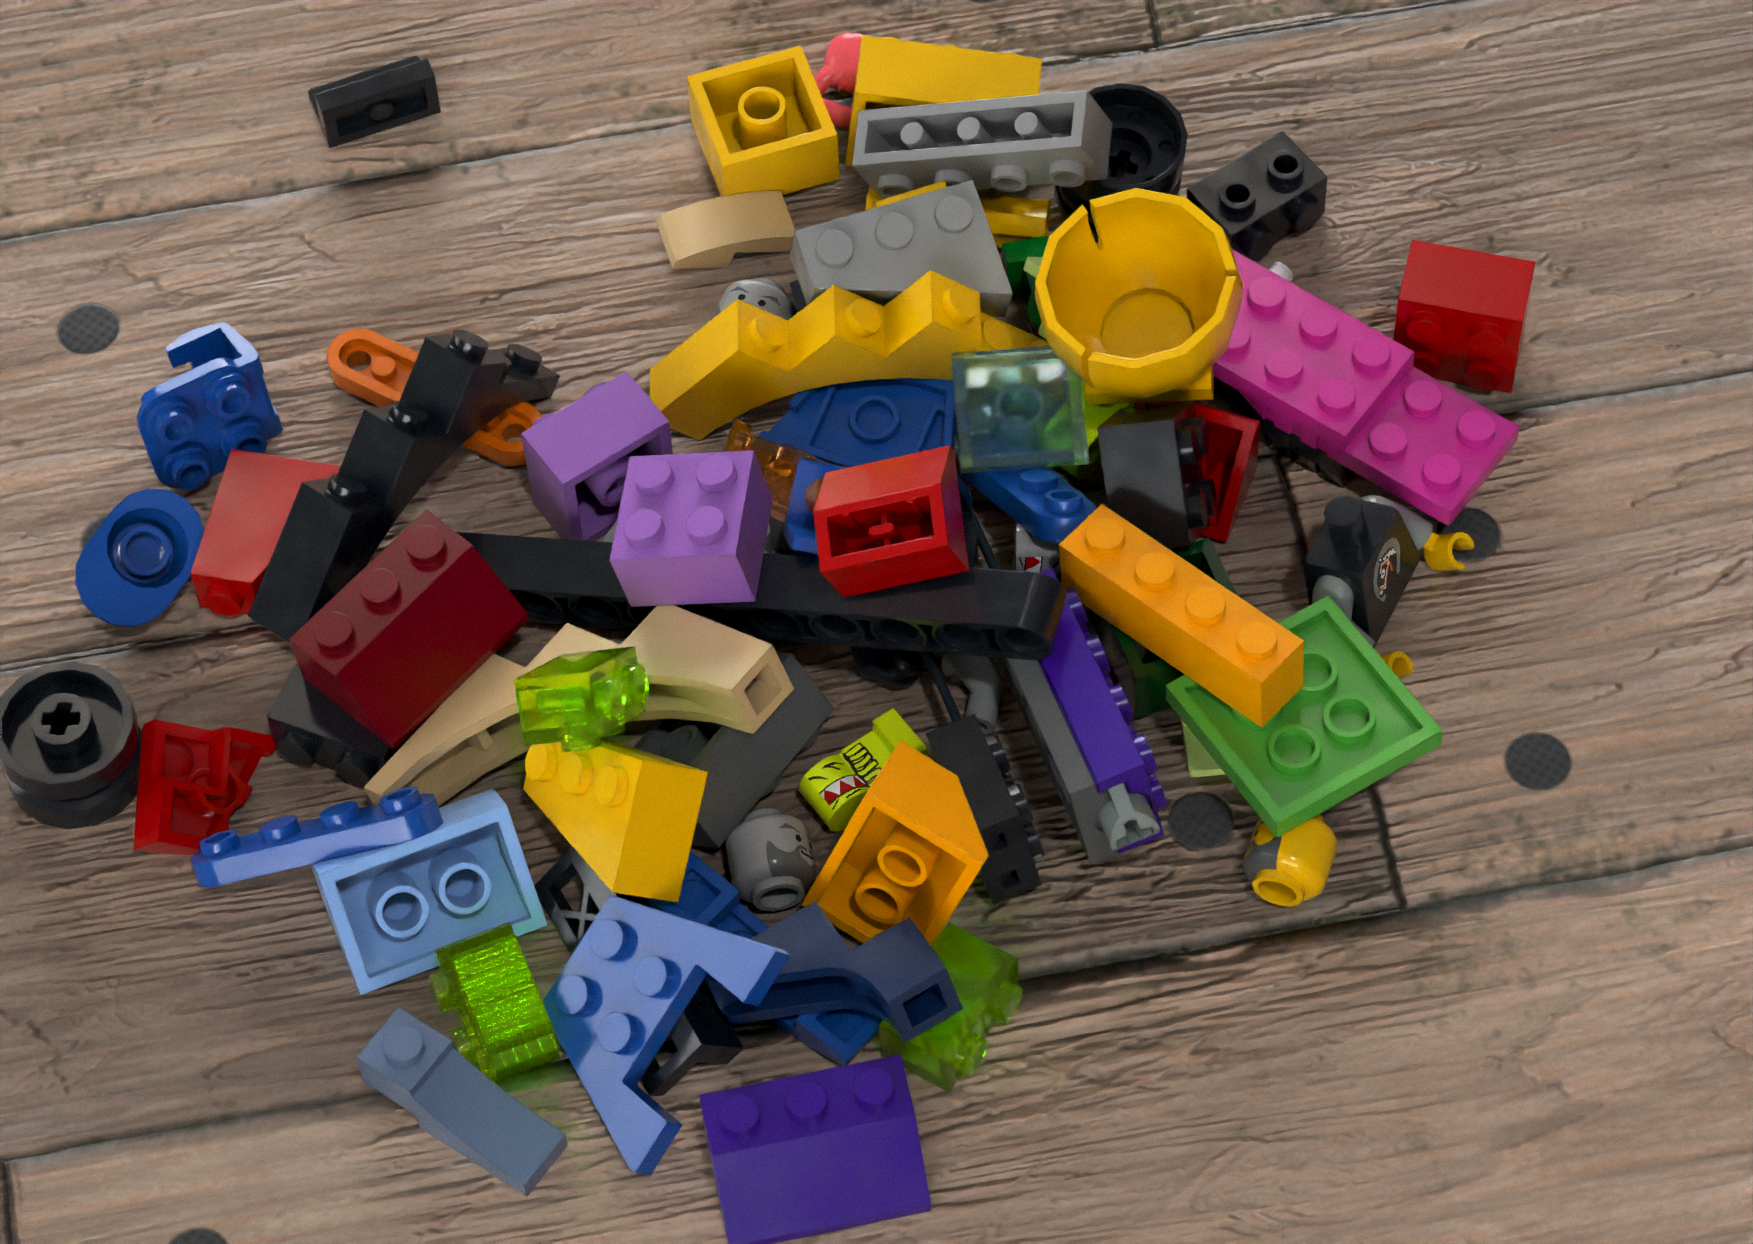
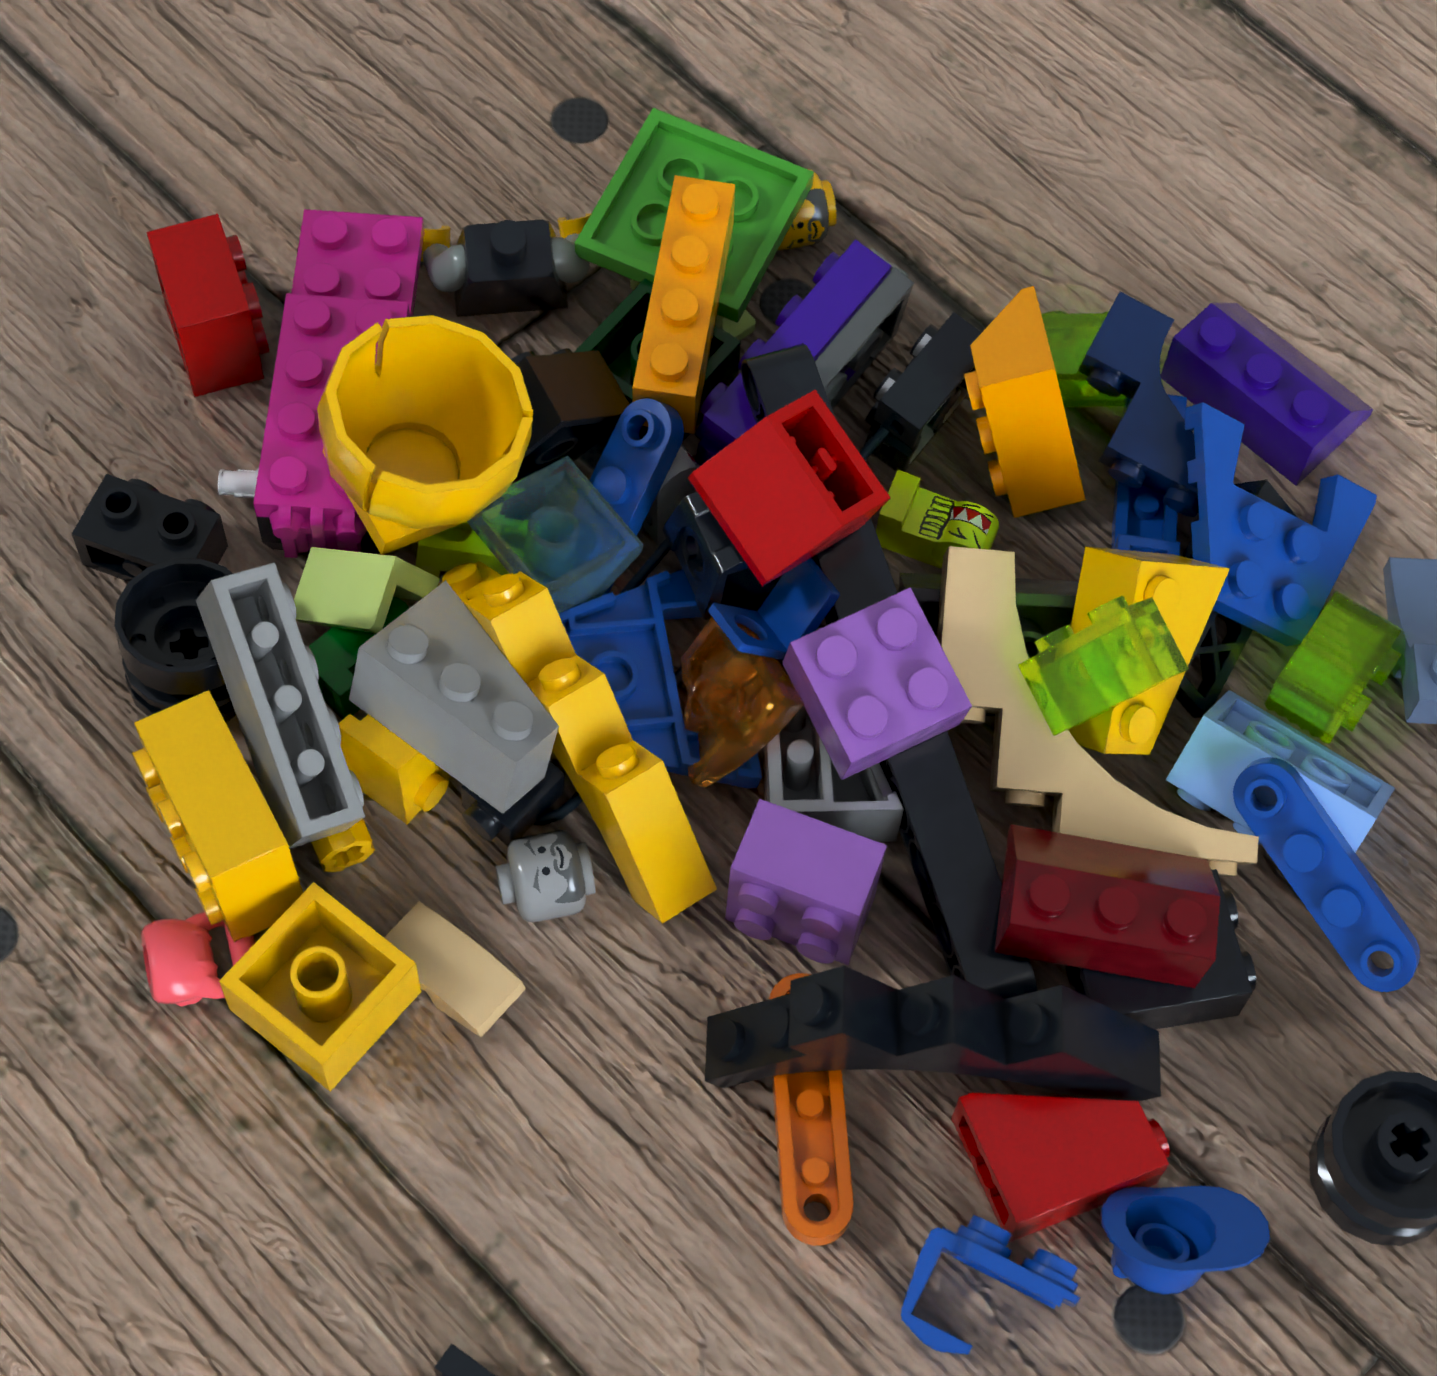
camera: 130 degrees left, 5 degrees up
(192, 783) = (1337, 1039): red slope -> none
(771, 859) = (1057, 538): light grey head -> none

